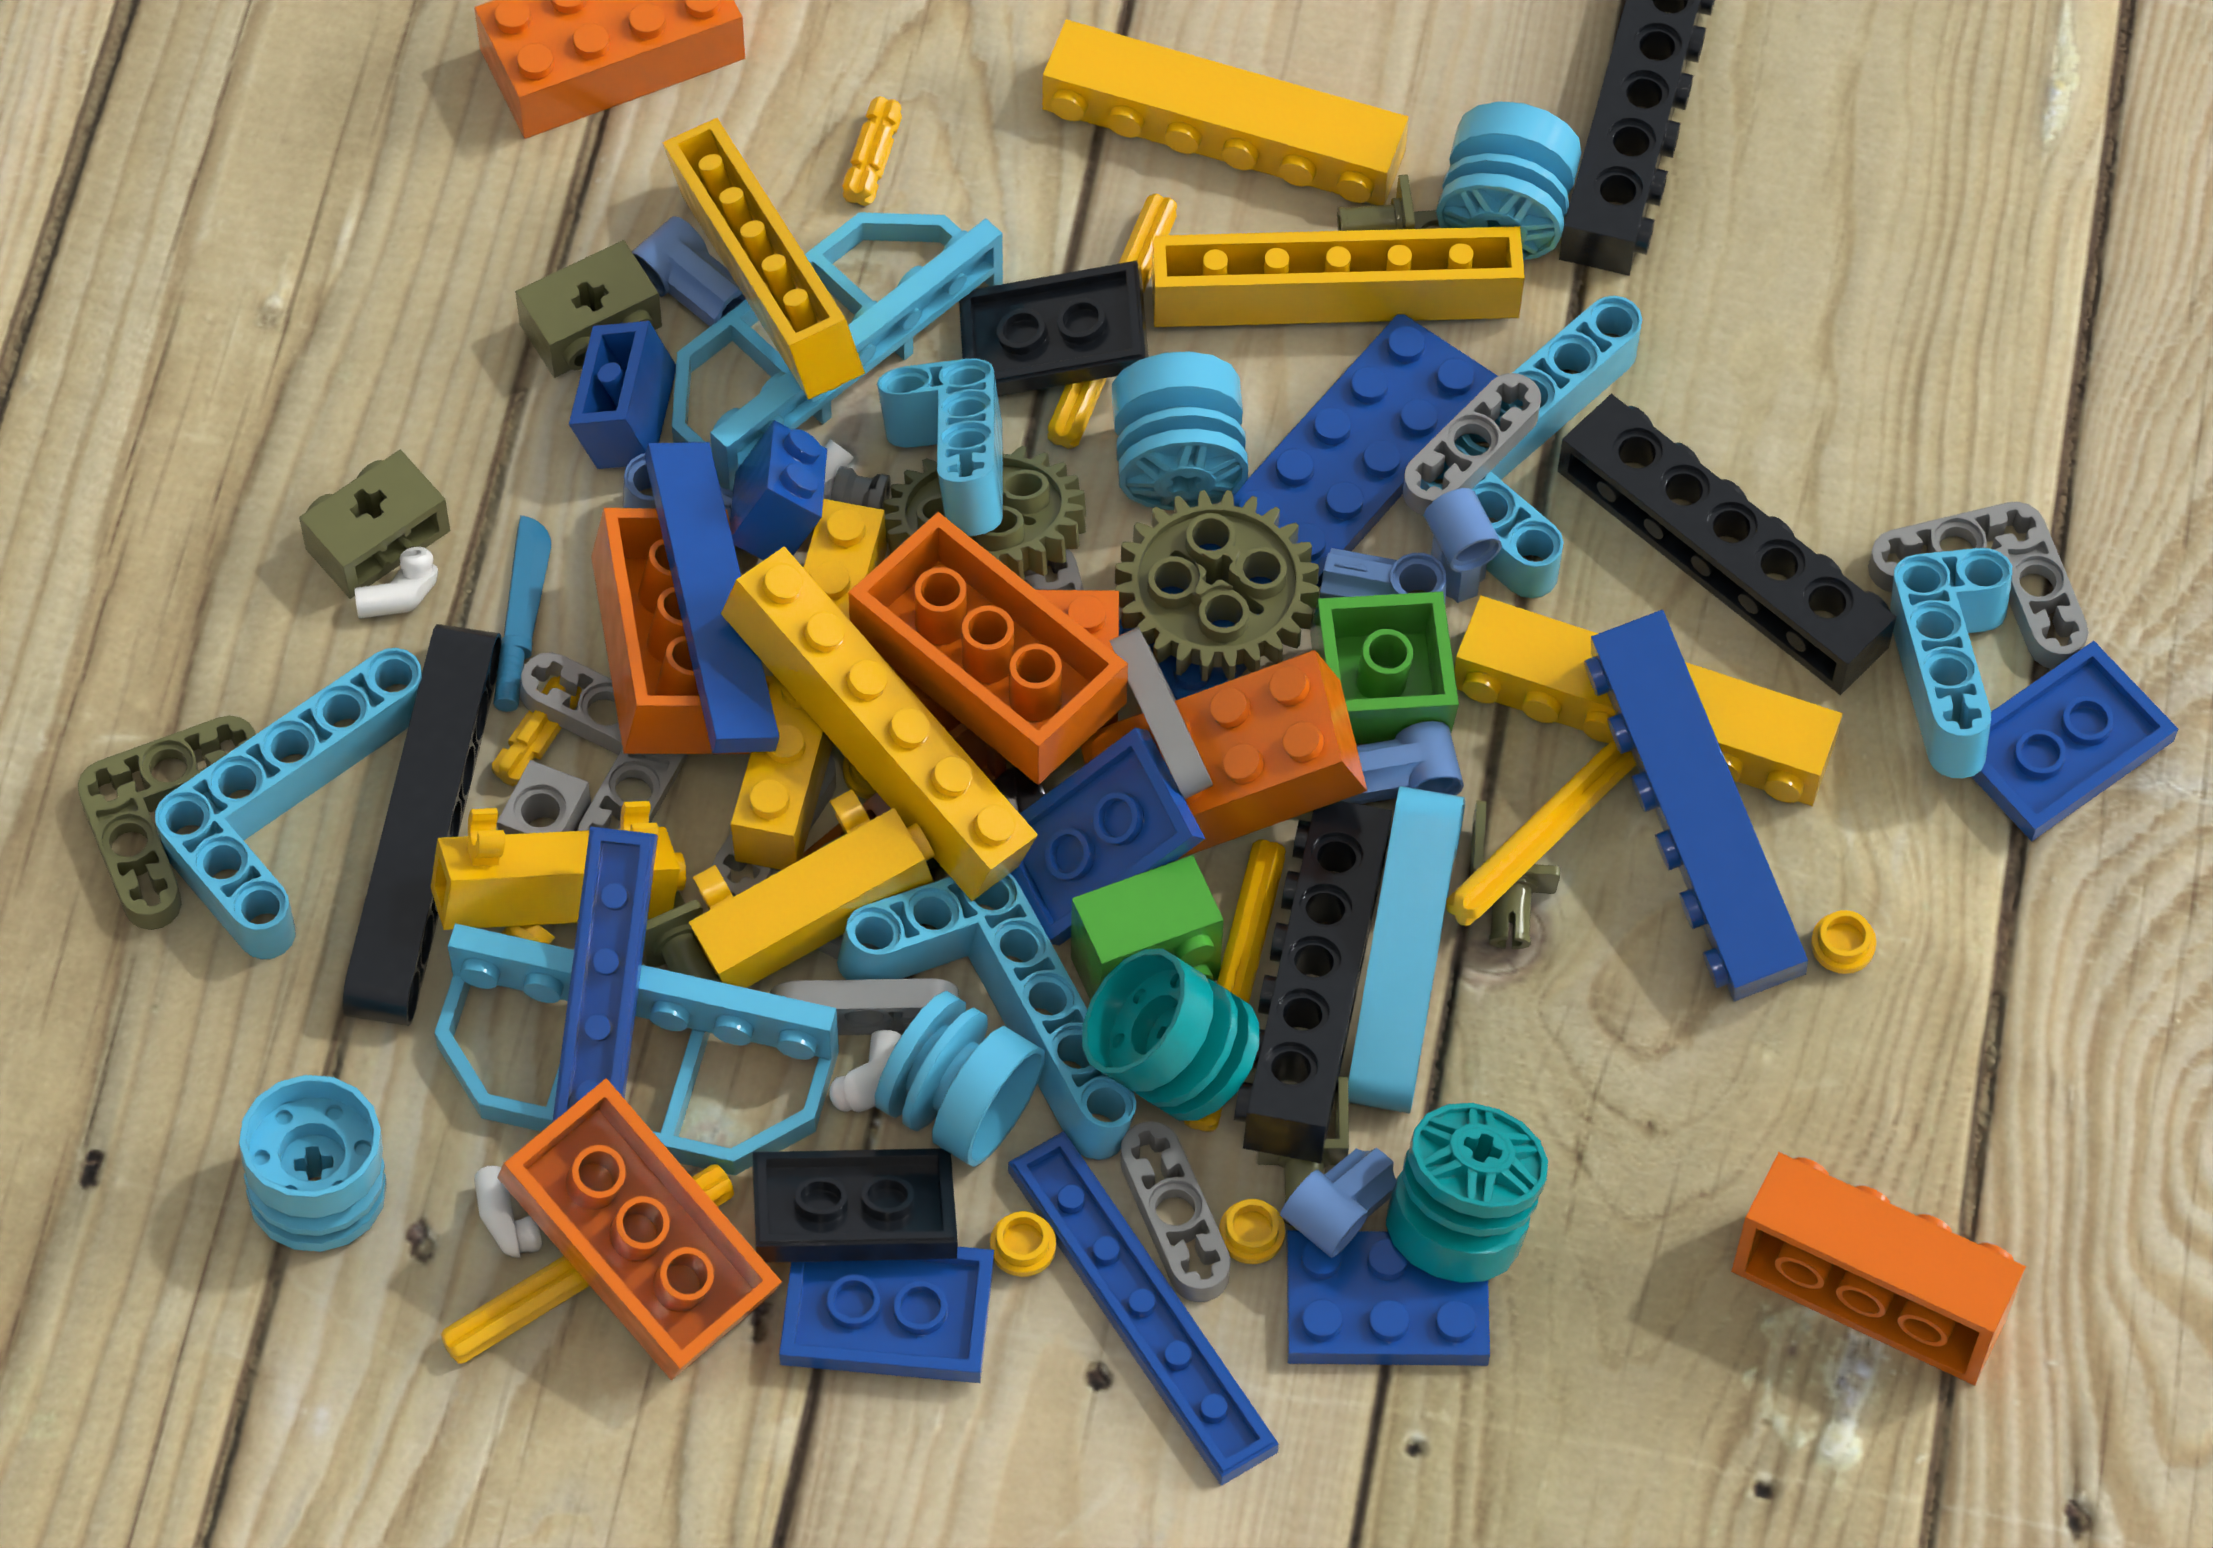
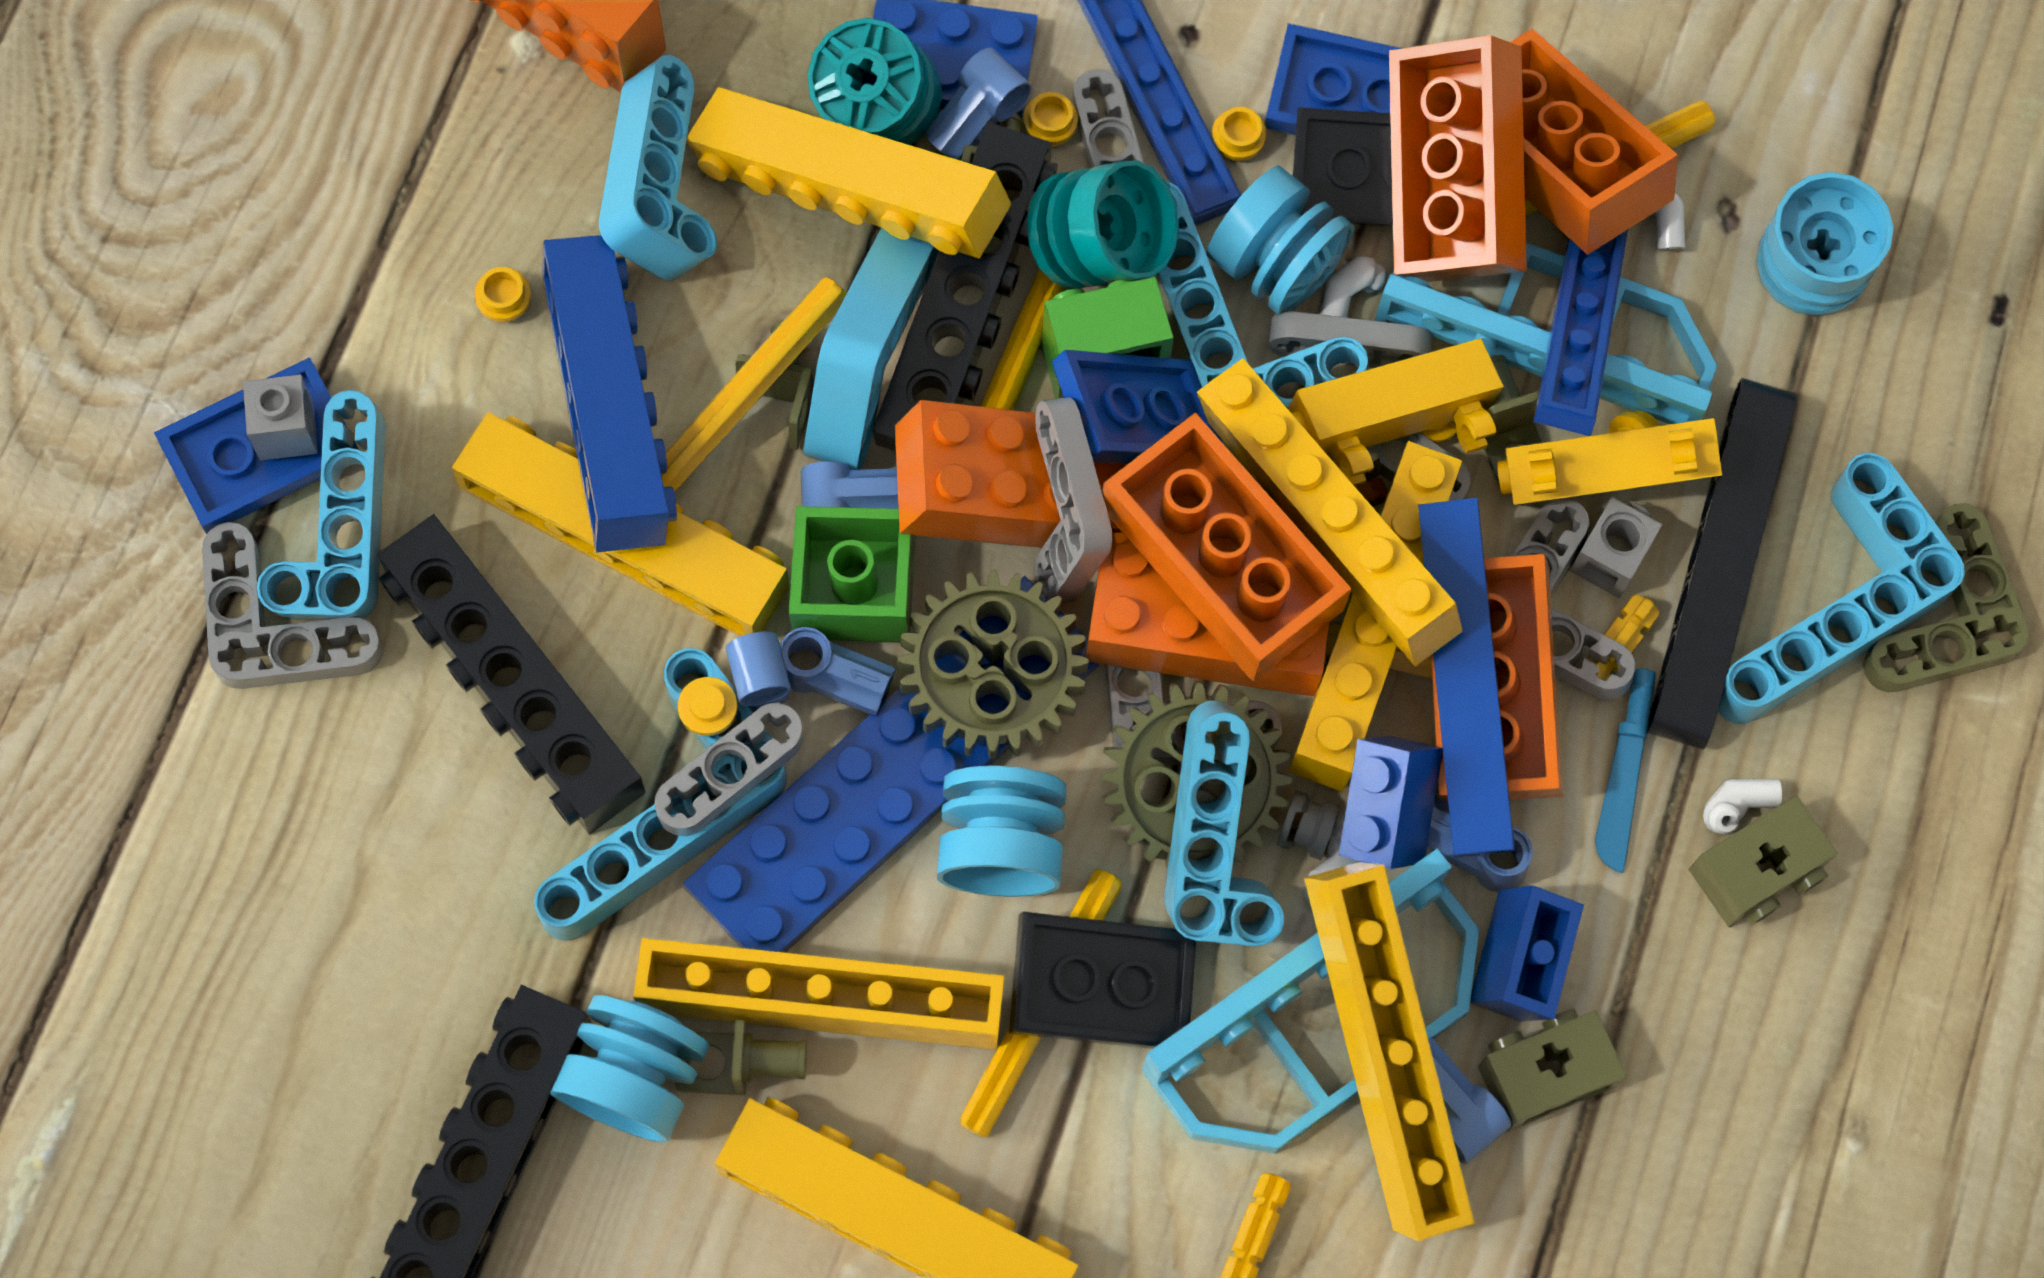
camera: 175 degrees left, 10 degrees up
(763, 1146) = (1457, 159): none -> orange brick
(1464, 1056) = (849, 173): none -> yellow brick
(1508, 497) = (707, 706): none -> yellow plate
(1722, 1159) = (644, 174): none -> medium azure beam
(2041, 729) = (280, 417): none -> light grey brick

